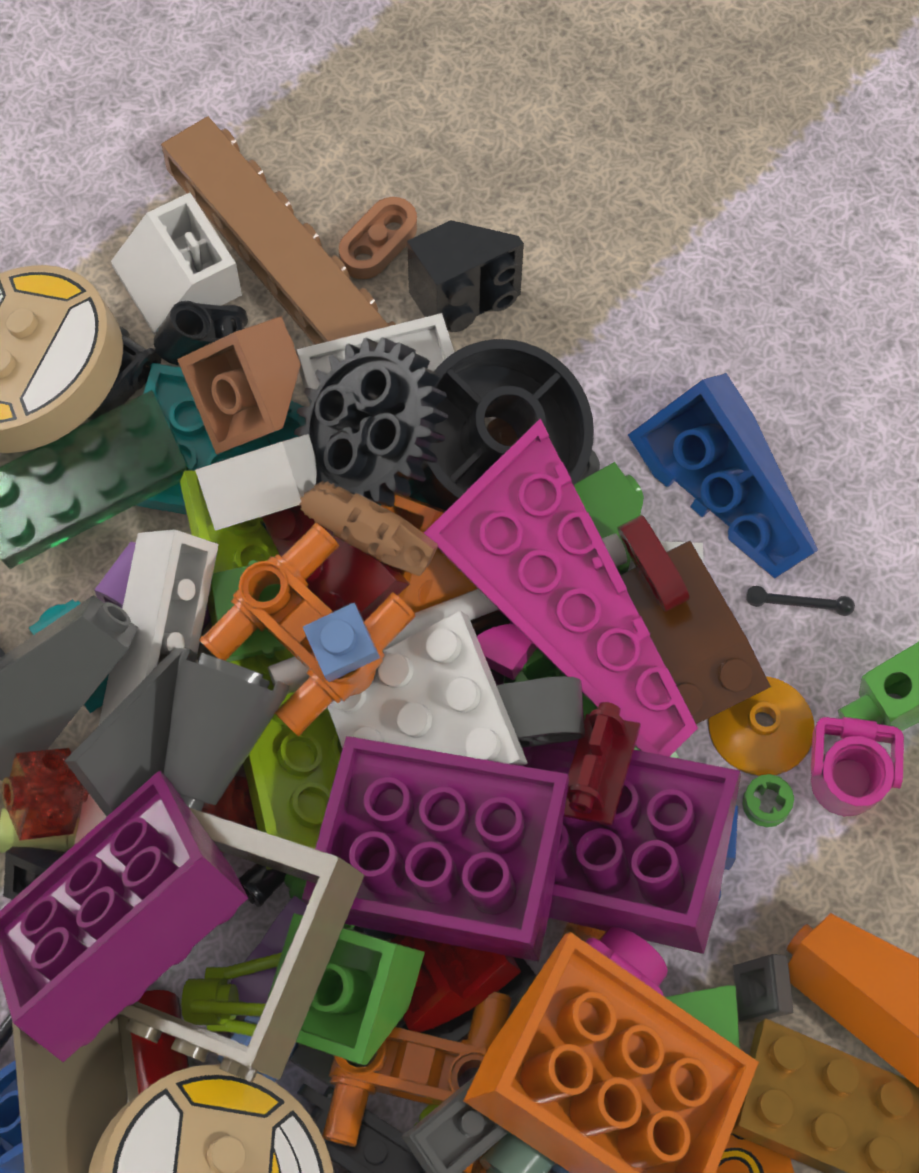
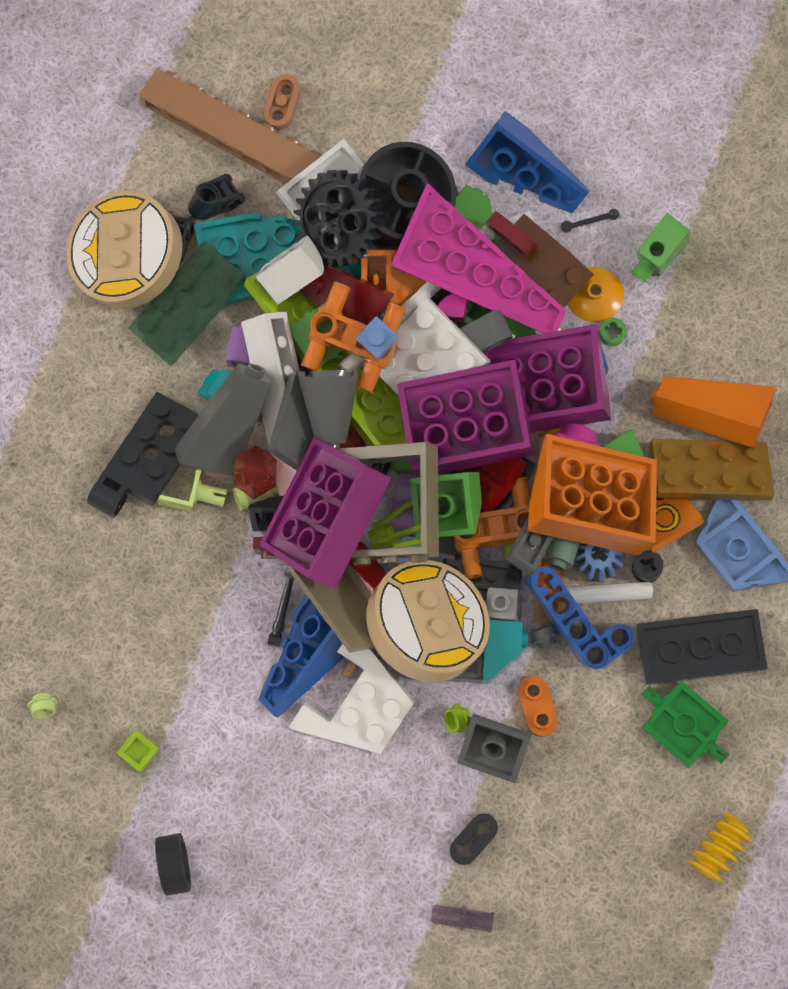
camera: 15 degrees left, 10 degrees up
(175, 259) = (180, 163): white slope -> none
(243, 383) = (256, 219): nougat slope -> none
(369, 527) = (362, 273): medium nougat hinge -> none
(464, 272) = (340, 107): black slope -> none
(600, 765) = (526, 347): dark red hinge -> none
(763, 988) = (645, 425): dark grey tile -> none
(857, 768) = (651, 299): dark pink piece -> none

